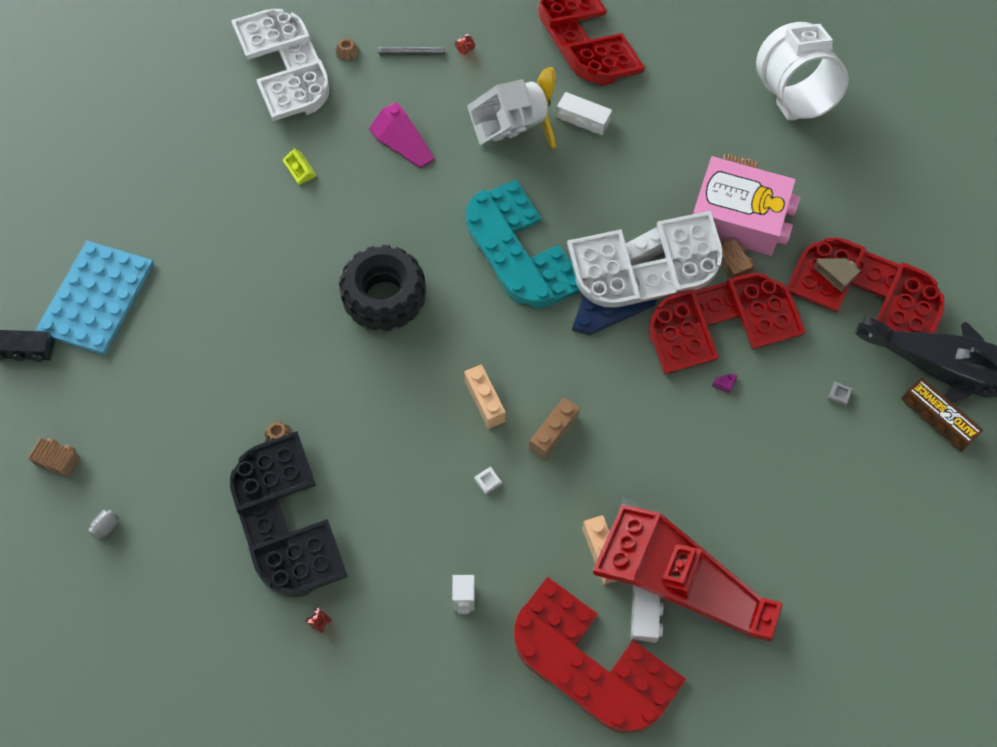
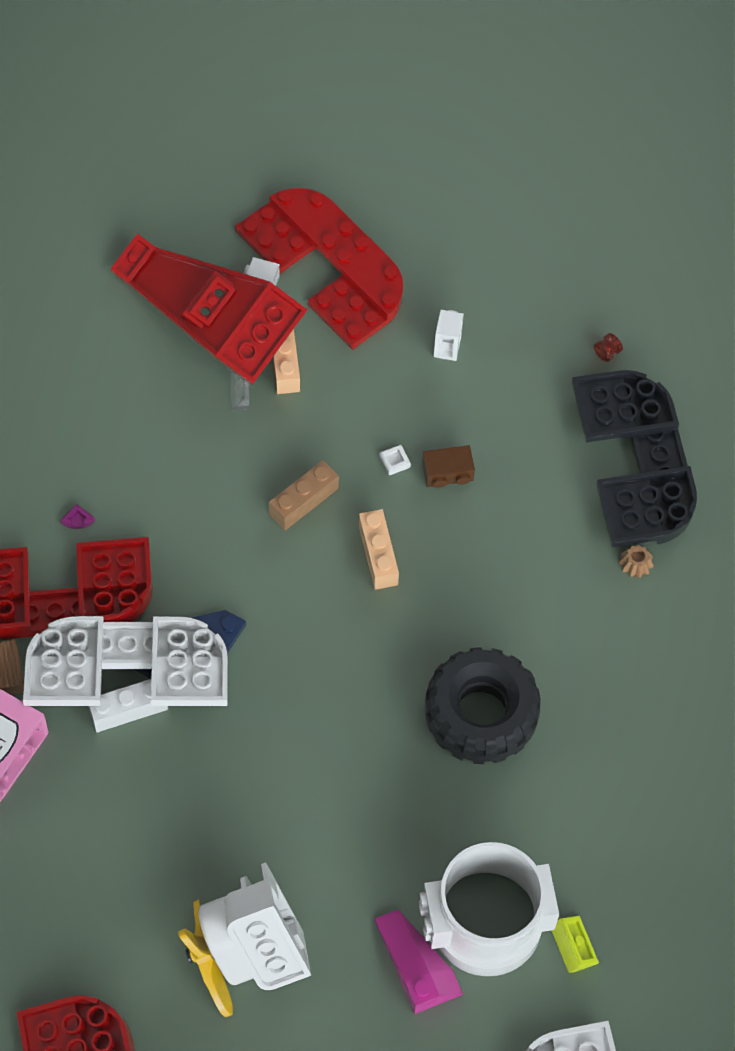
camera: 170 degrees left, 0 degrees up
(364, 176) = (481, 954): none -> white cylinder
(442, 478) = (448, 466): none -> reddish brown brick
(492, 225) = (316, 796): teal plate -> none
(583, 113) = (136, 945): white brick -> none

